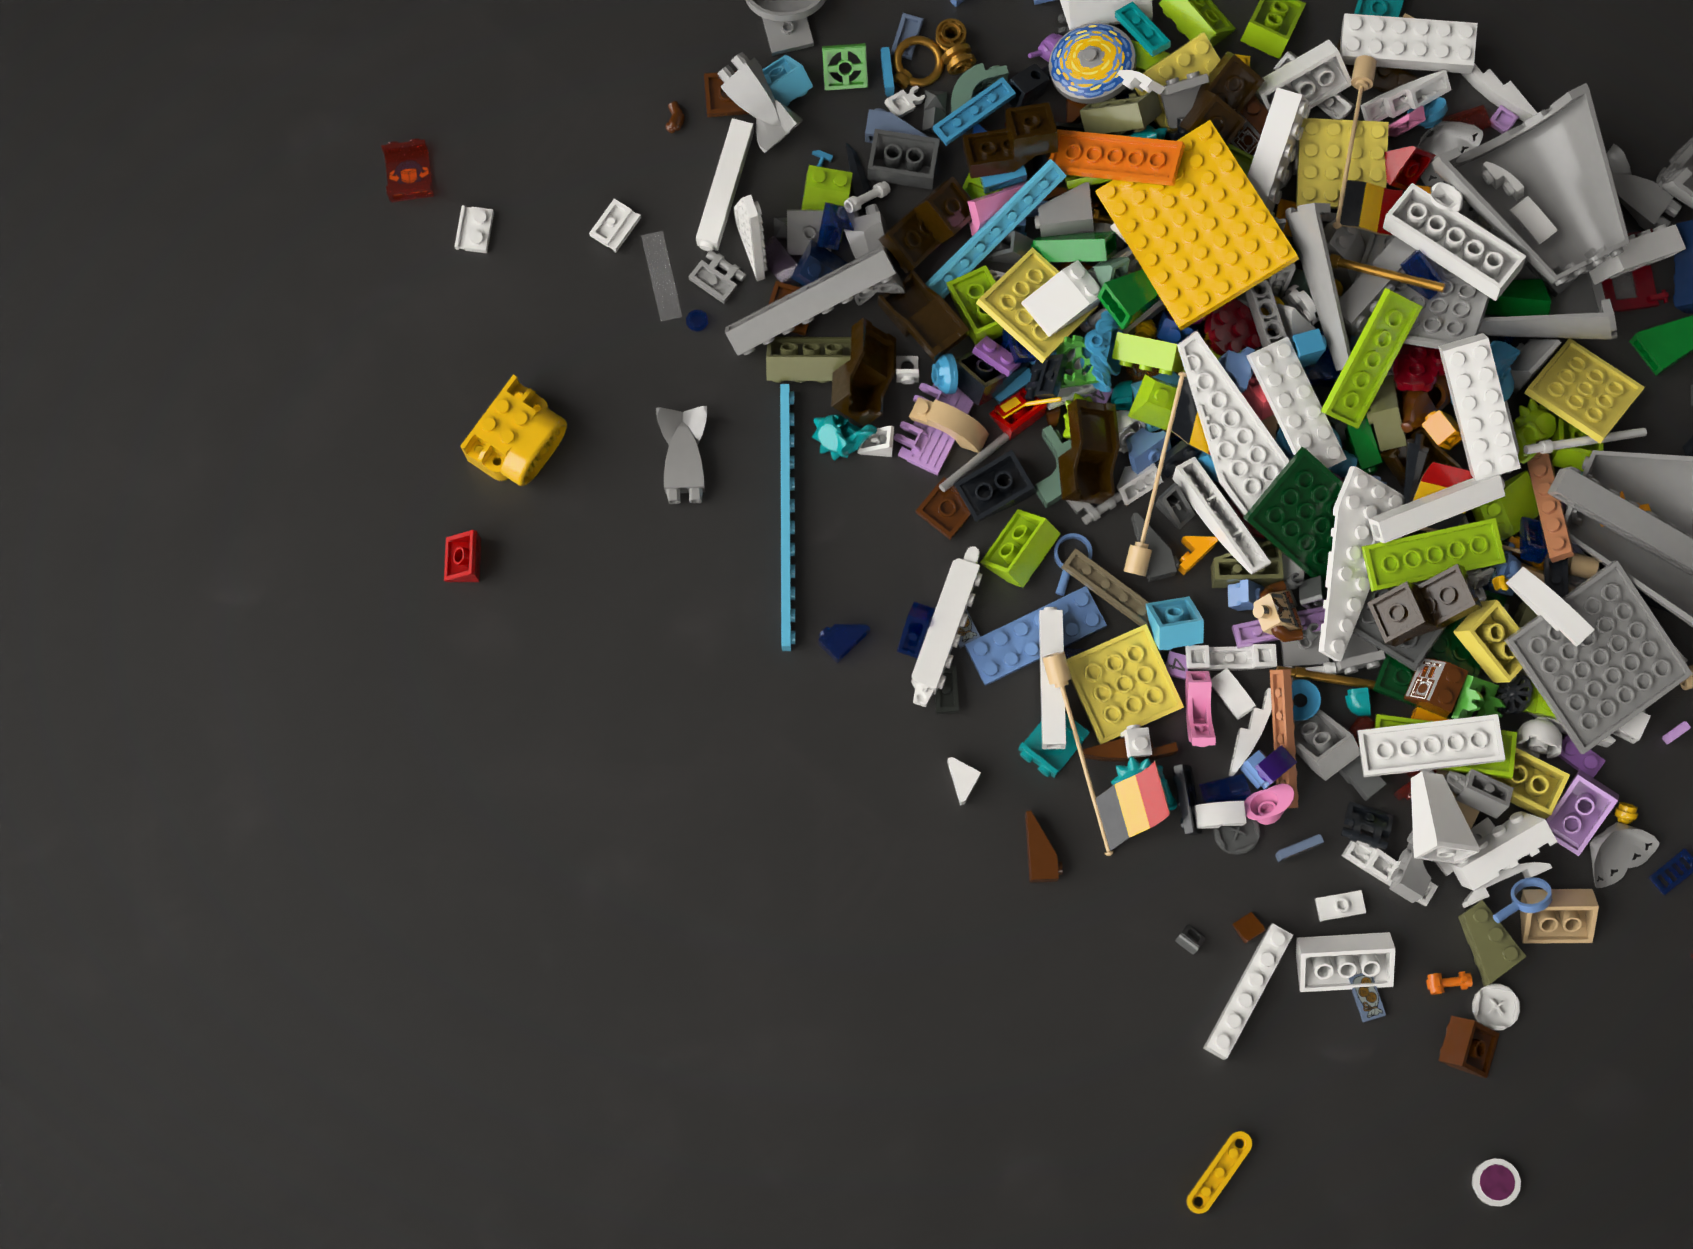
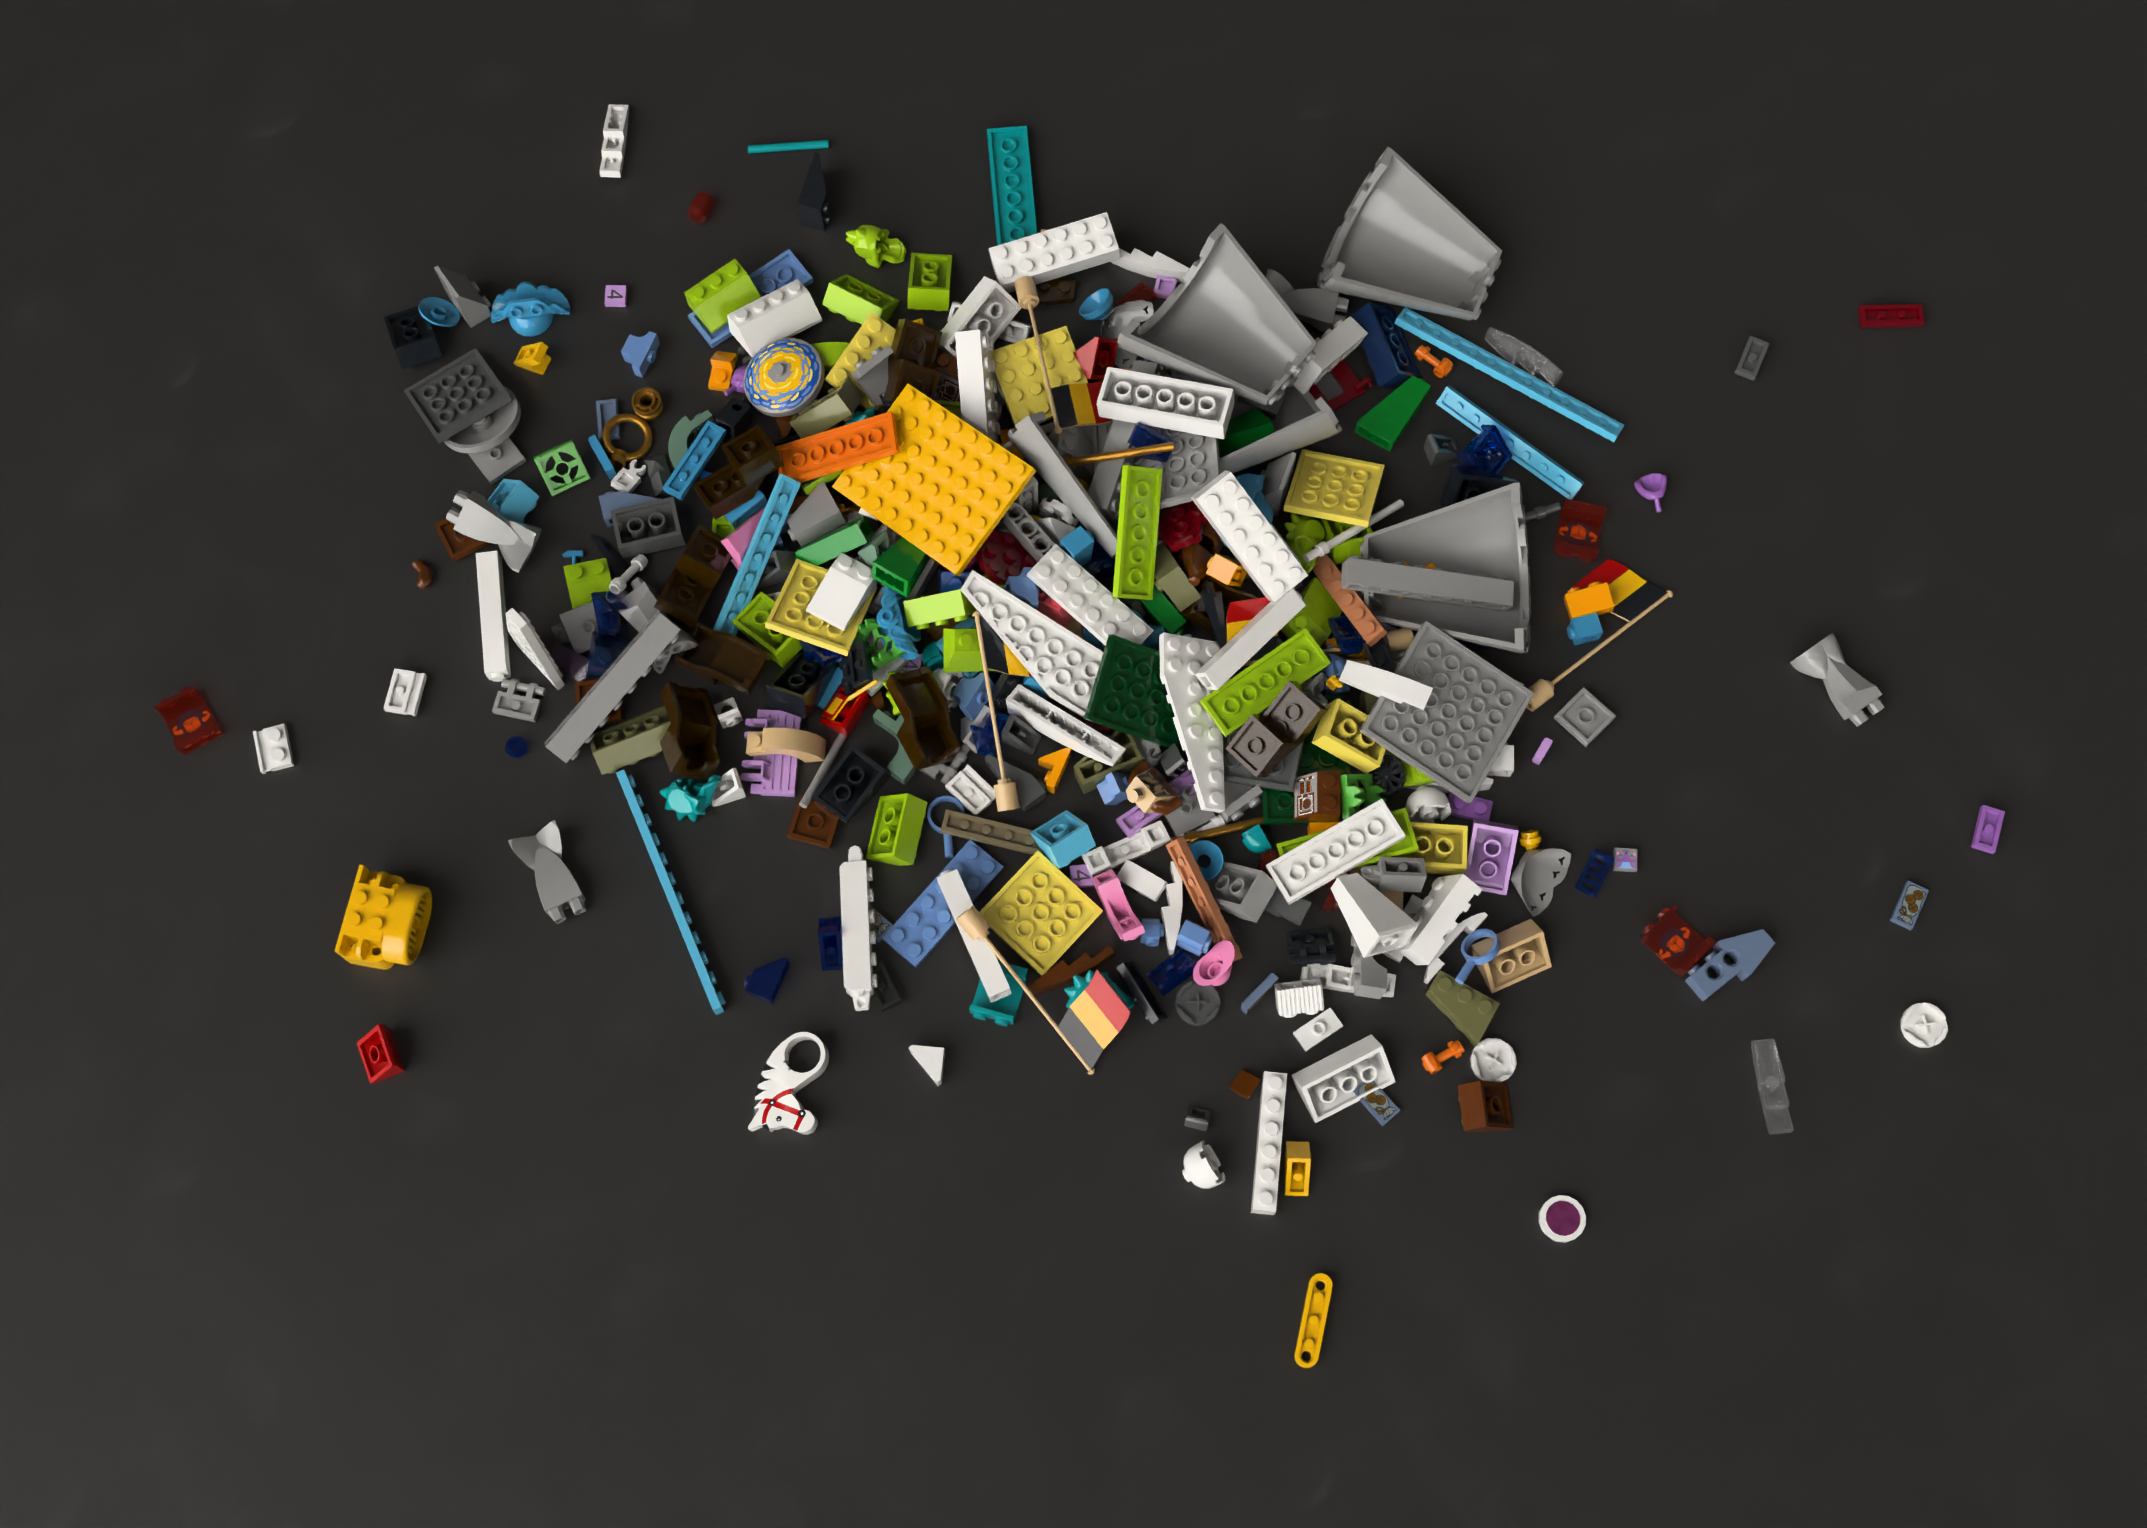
camera: 25 degrees left, 5 degrees down
(661, 276) = (466, 720): clear slope -> none
(806, 751) = (777, 1089): none -> white animal
(945, 374) = (763, 702): dark azure piece -> none
(959, 59) = (662, 420): pearl gold wheel -> none
(995, 356) = (803, 667): medium lavender plate -> none
(1036, 30) = (722, 370): none -> light orange slope
(1041, 856) = (1031, 1100): reddish brown slope -> none
(1106, 540) = (971, 790): none -> white plate
(1137, 80) = (832, 374): white slope -> none
(1137, 741) = (1073, 959): white bracket -> none
(1140, 494) = (984, 737): none -> clear blue slope
(1142, 29) = (816, 330): teal plate -> none
(1146, 329) = (929, 588): yellow plate -> none
(1175, 986) = (1202, 1166): none -> white cylinder
(1220, 814) = (1175, 993): white slope -> none
(1223, 746) = (1153, 931): none -> medium blue plate
(1264, 1026) = (1297, 1168): none -> yellow slope
(1275, 765) = (1205, 927): dark purple slope -> none
(1335, 868) = (1299, 997): none -> white brick
(1406, 96) = (1073, 299): white slope -> none
(1407, 122) = (1082, 320): bright pink slope -> none
(1447, 194) = (1142, 364): white piece -> none
(1499, 177) = (1181, 334): white slope -> none
(1533, 220) = (1226, 358): white slope -> none

